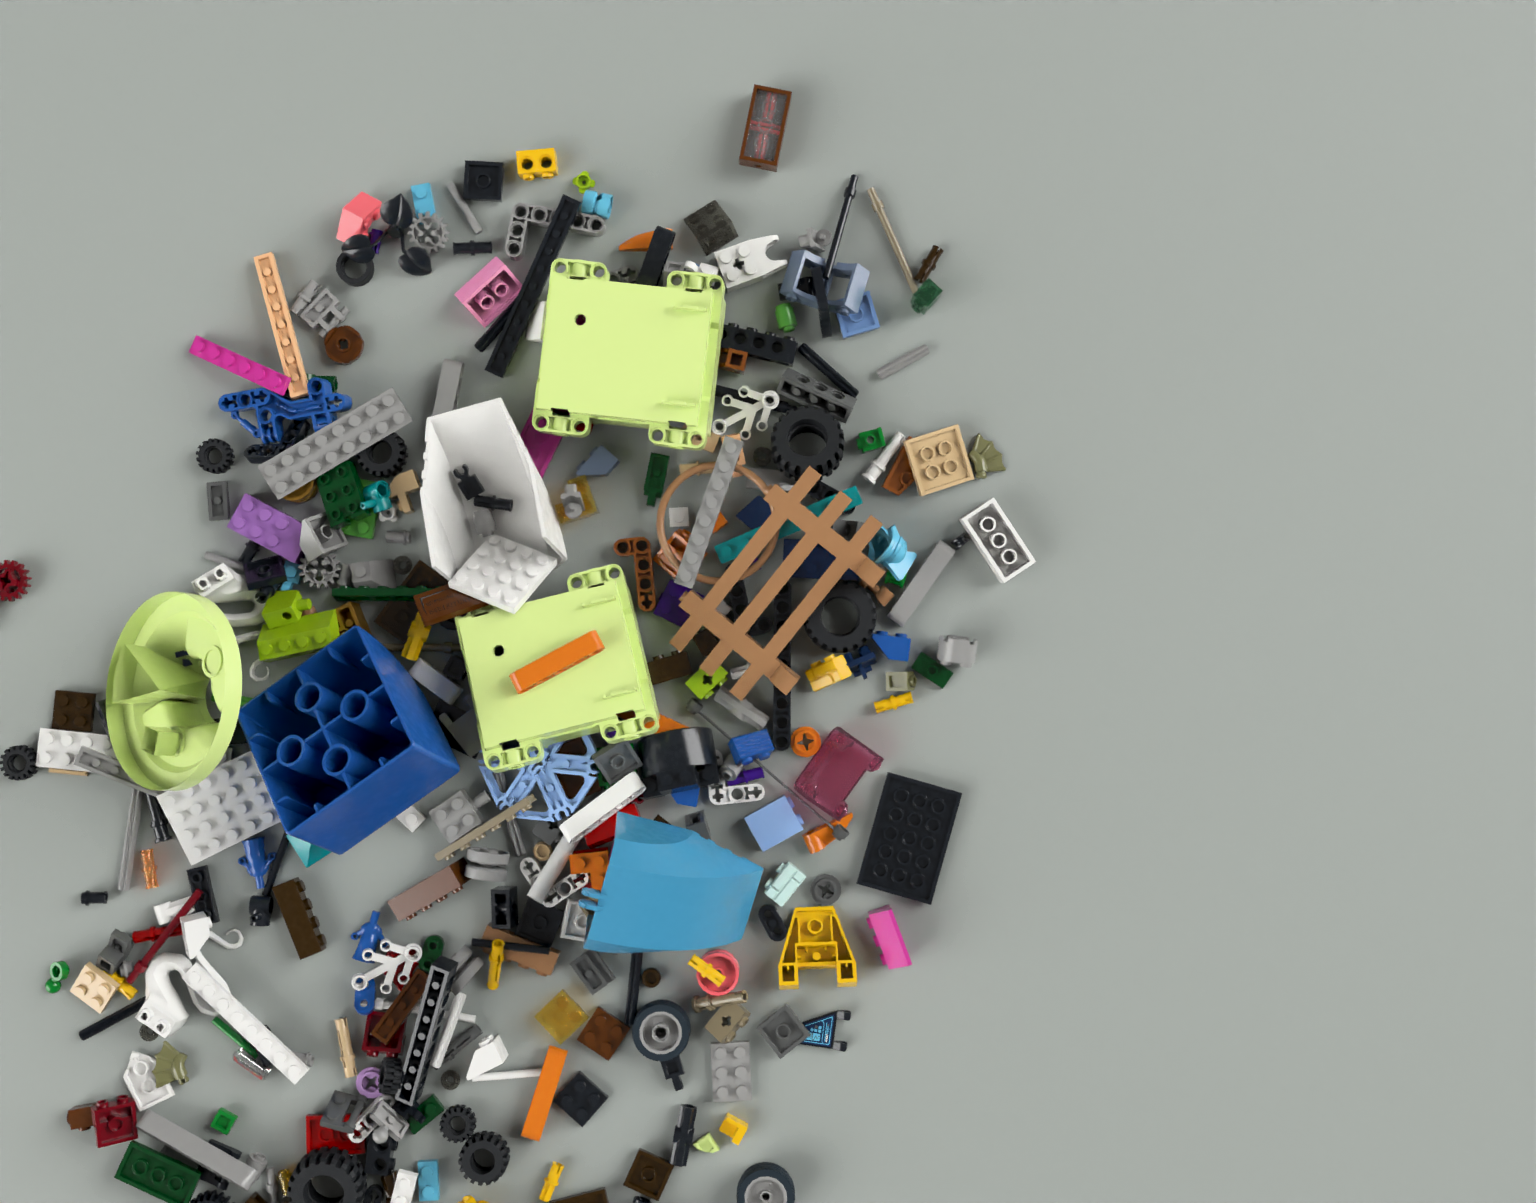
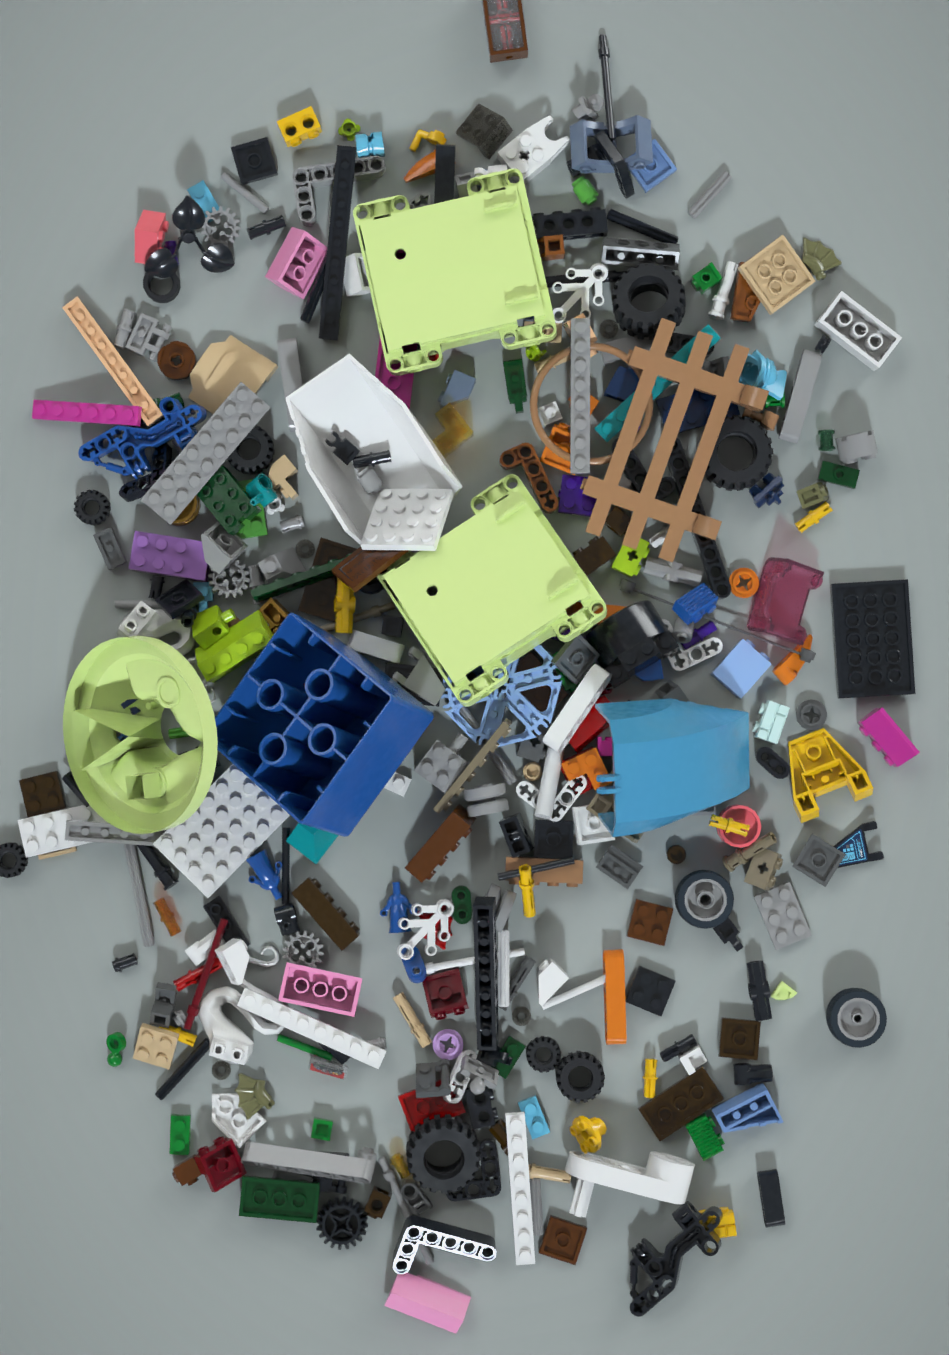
camera: 20 degrees left, 0 degrees up
(89, 1078) = (180, 1134): none -> green plate
(267, 990) = (320, 989): none -> bright pink slope
(275, 951) = (304, 939): none -> light grey gear
(385, 367) = (223, 368): none -> tan slope
(390, 1075) = (465, 1029): black tyre -> none
(401, 1008) = (453, 961): reddish brown plate -> none
(557, 662) = (492, 579): orange beam -> none
(561, 1016) = (605, 920): clear yellow plate -> none
(572, 501) = (449, 429): light grey hips -> none
(588, 1163) = (678, 1048): none -> black axle
(597, 1177) = (692, 1059): none -> white panel
(633, 988) = (662, 867): black axle -> none
(661, 217) = (434, 138): none -> yellow plate
(684, 456) = (534, 353): none -> lime plate
(734, 1128) = (803, 967): yellow panel -> none
(827, 673) = (745, 507): yellow brick -> none
(879, 208) = (635, 57): dark tan bar -> none
(893, 647) = (794, 465): blue slope -> none
(925, 297) = (711, 125): clear green brick -> none
(928, 264) = (701, 95): dark brown pin -> none
(931, 633) = (826, 440): none -> clear green bush

